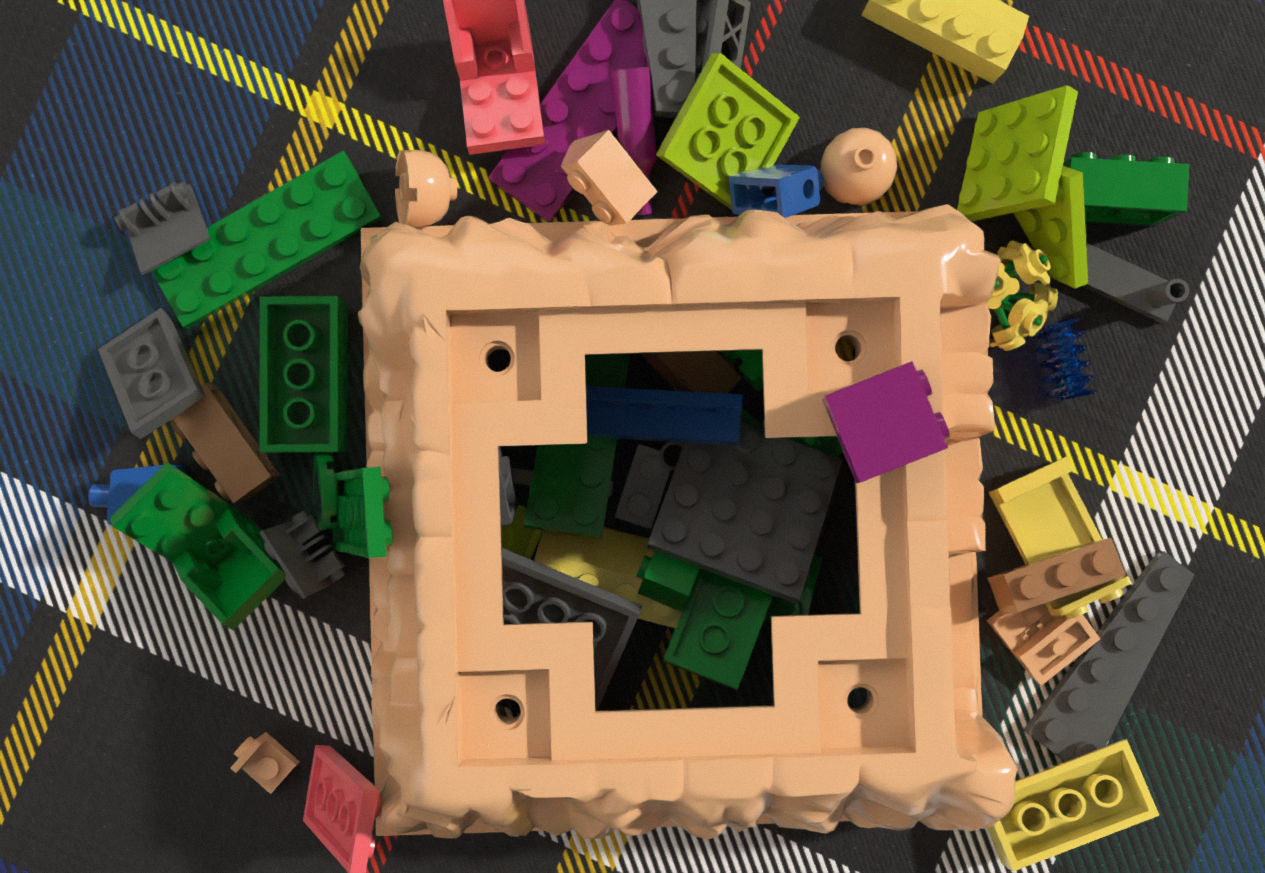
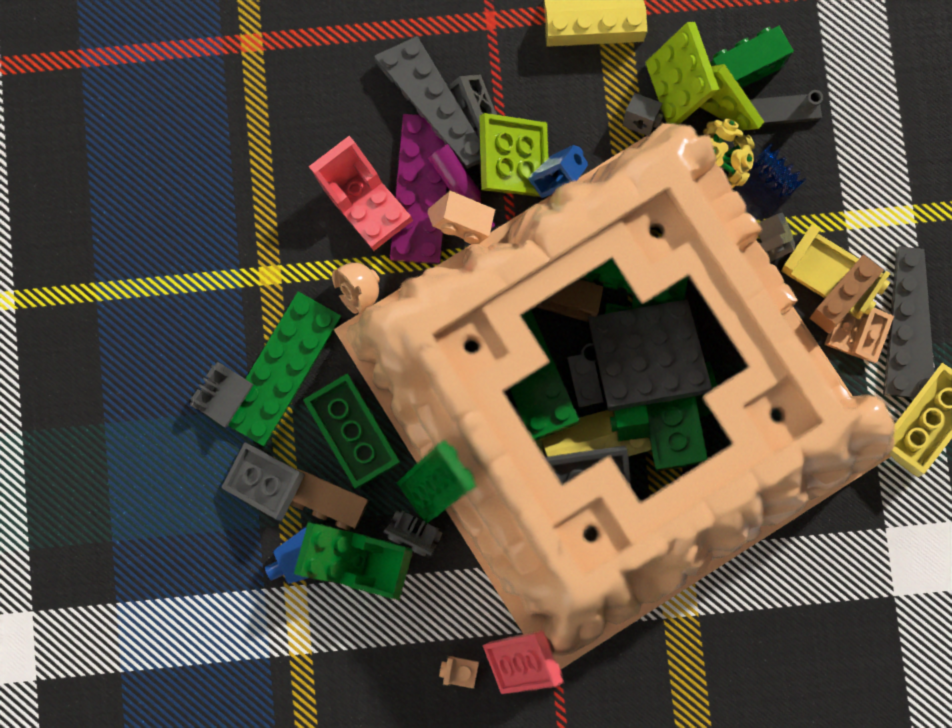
camera: 25 degrees left, 5 degrees down
(324, 491) = (403, 490): green tile -> none
(663, 415) = (579, 328): blue fence -> none
(858, 166) = (596, 131): light nougat cylinder -> none
(886, 421) = (701, 255): magenta piece -> none
(932, 179) = (643, 114): none -> dark grey brick
(1009, 446) = (776, 236): none -> dark grey brick

